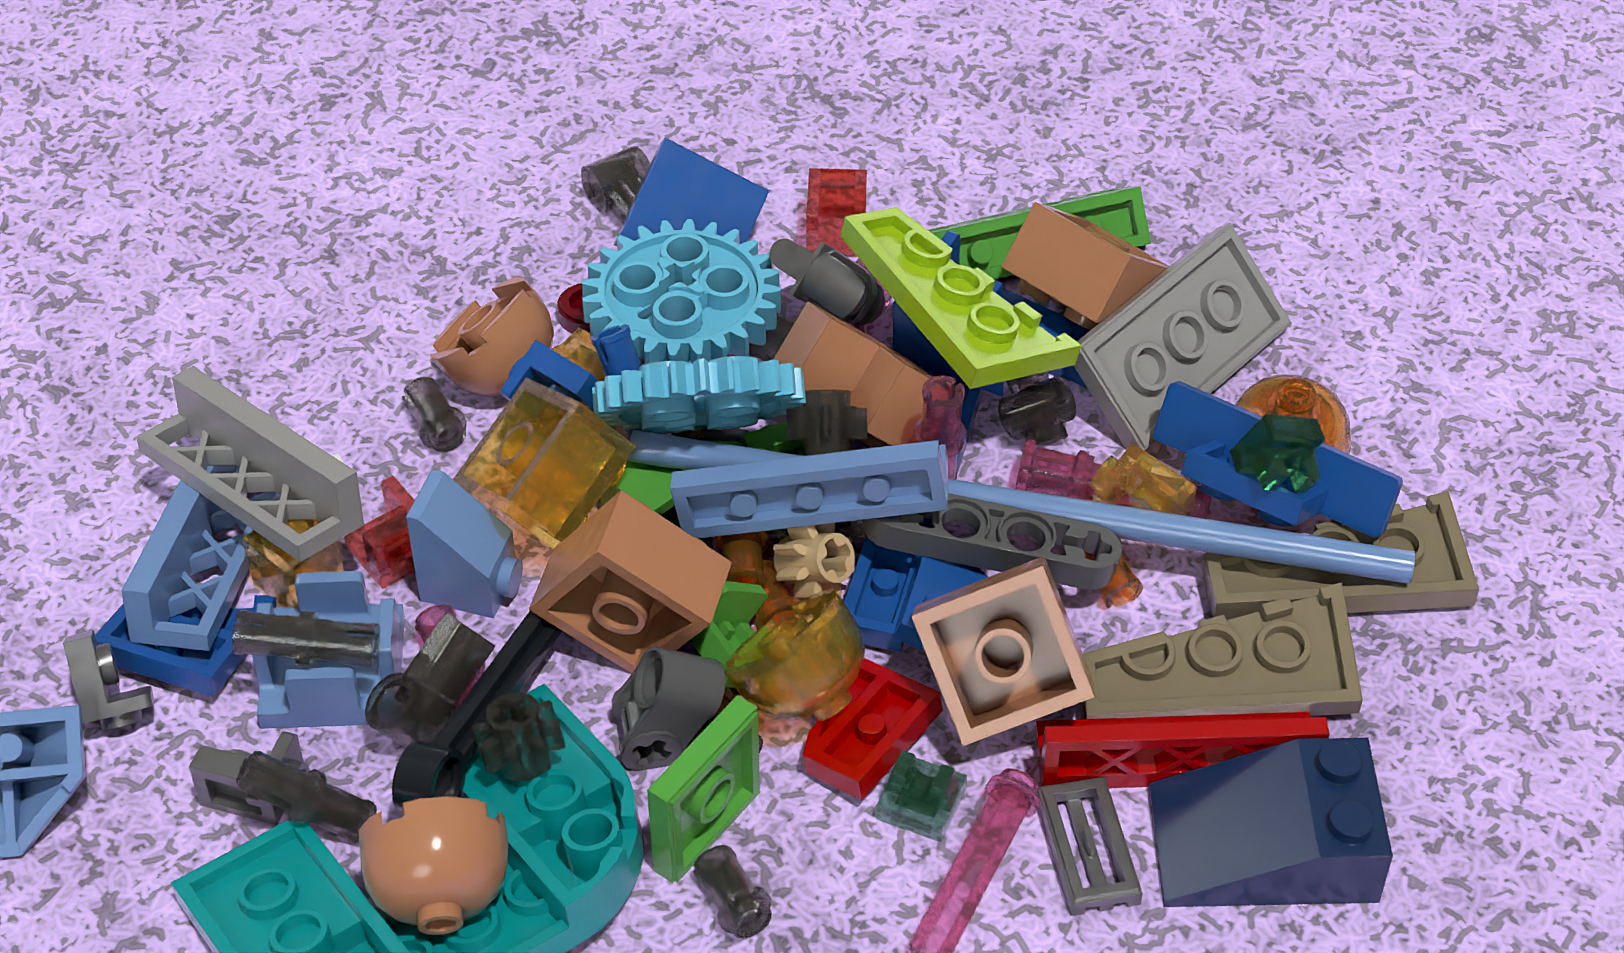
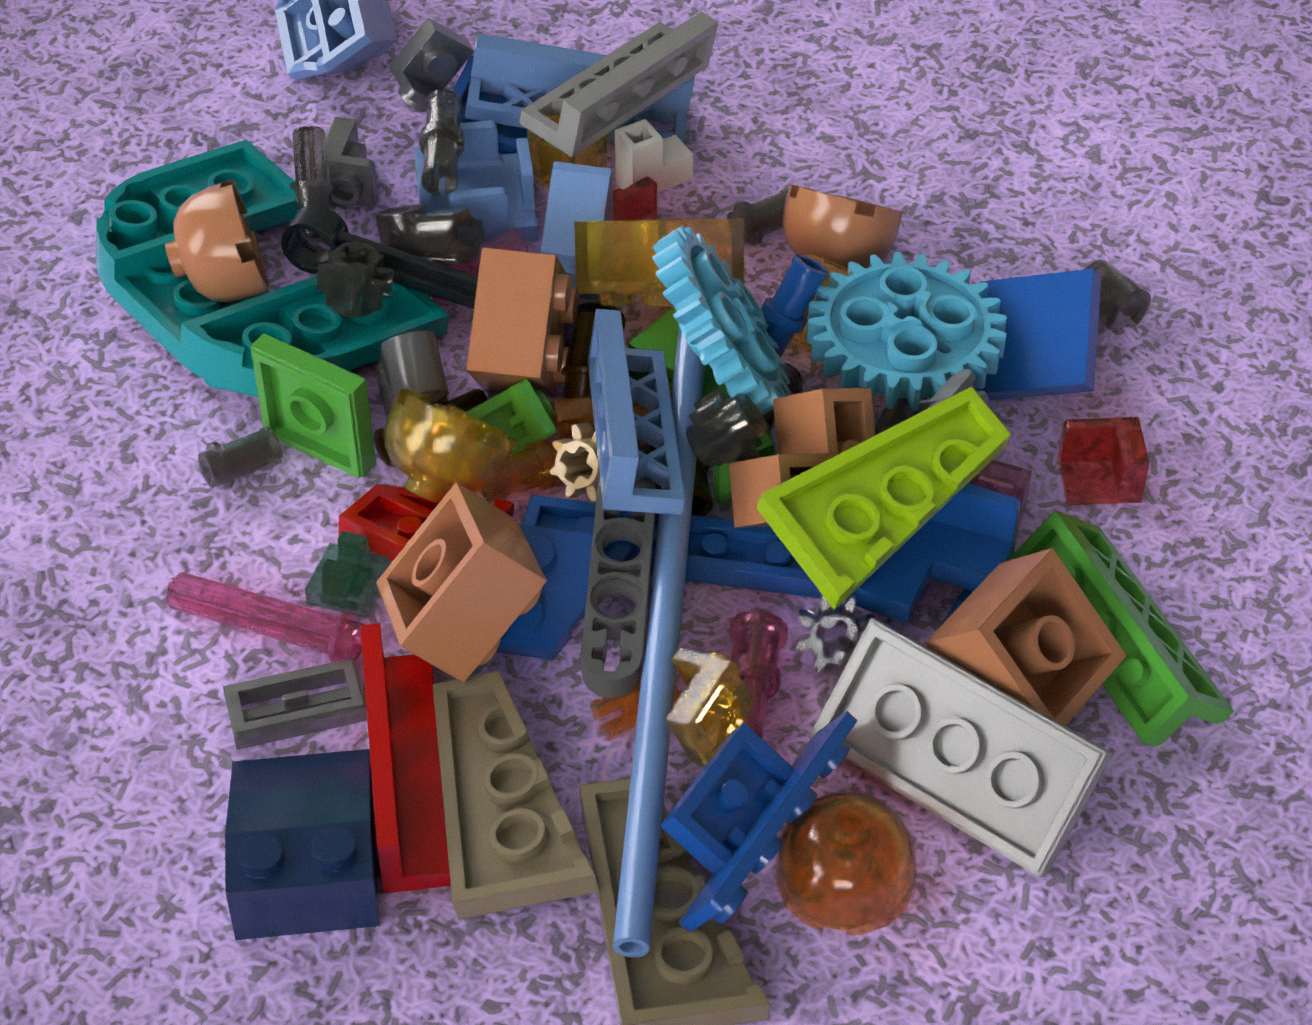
camera: 85 degrees right, 0 degrees up
(552, 371) = (764, 253): blue bracket -> none
(942, 418) = (723, 512): clear pink pin -> none
(1280, 449) = (734, 780): clear green tile -> none

